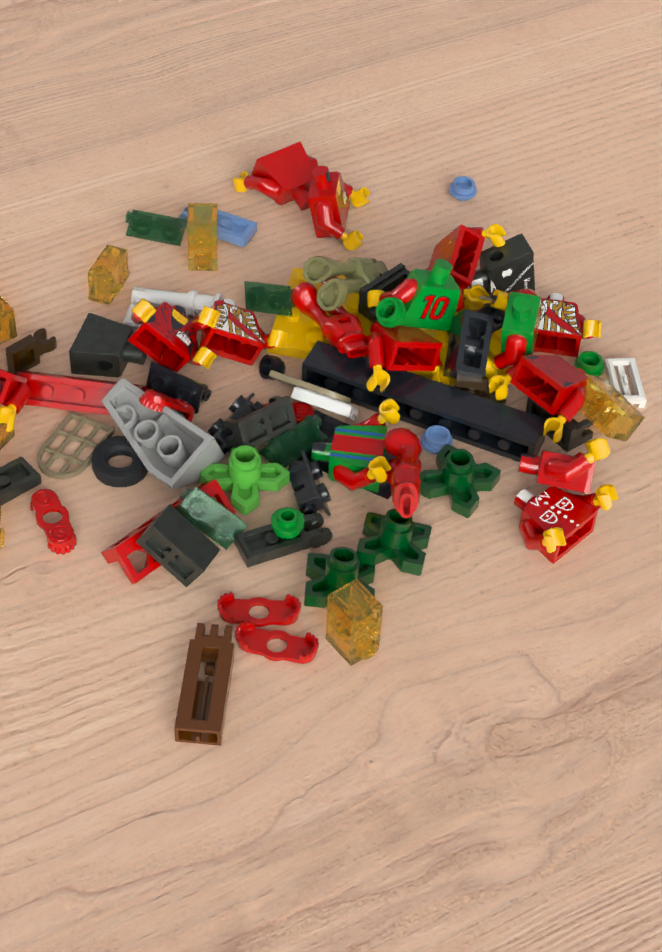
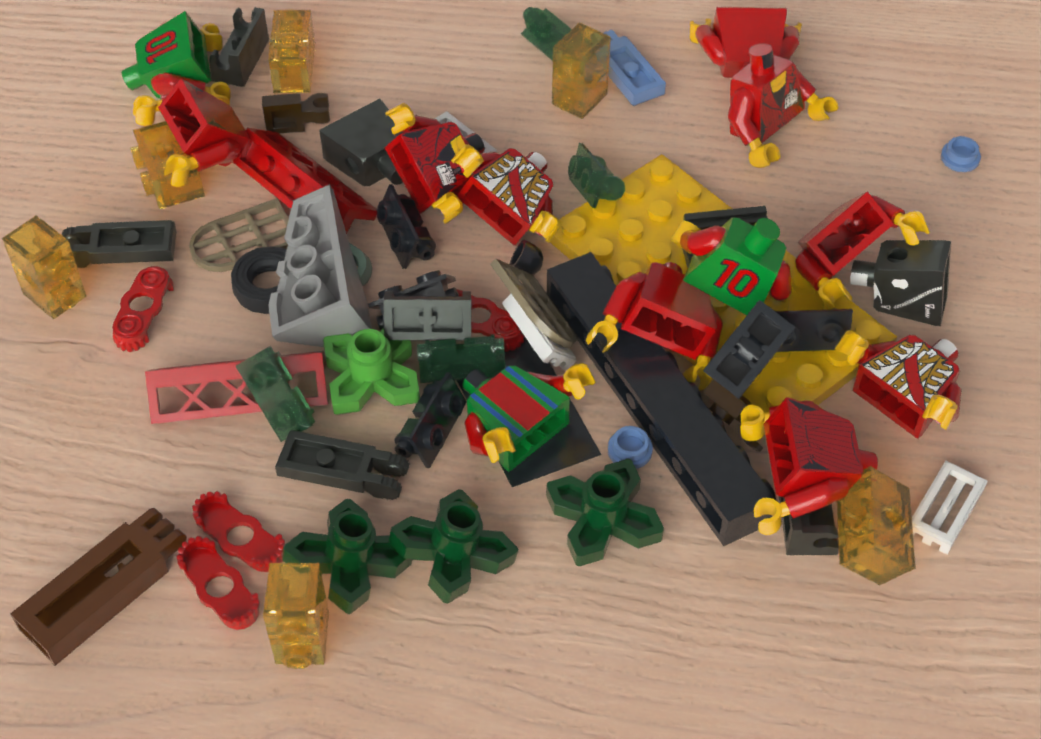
camera: 40 degrees right, 5 degrees up
(108, 274) = (450, 67): clear yellow piece -> none
(157, 401) = (334, 227): red piece -> none
(178, 545) = (213, 406): pearl dark grey hinge -> none
(191, 301) = (493, 128): white pin -> none
(287, 522) = (353, 457): green plate -> none
(334, 292) = (703, 193): olive piece -> none
(340, 329) = (627, 252): red piece -> none
(384, 309) = (670, 257): green plate -> none
(404, 470) = (508, 474): red piece -> none
(518, 328) = (823, 358): torso -> none
(560, 519) = (674, 637): red torso -> none
(566, 470) = (735, 579): red torso -> none
(590, 362) = (920, 449): green plate -> none

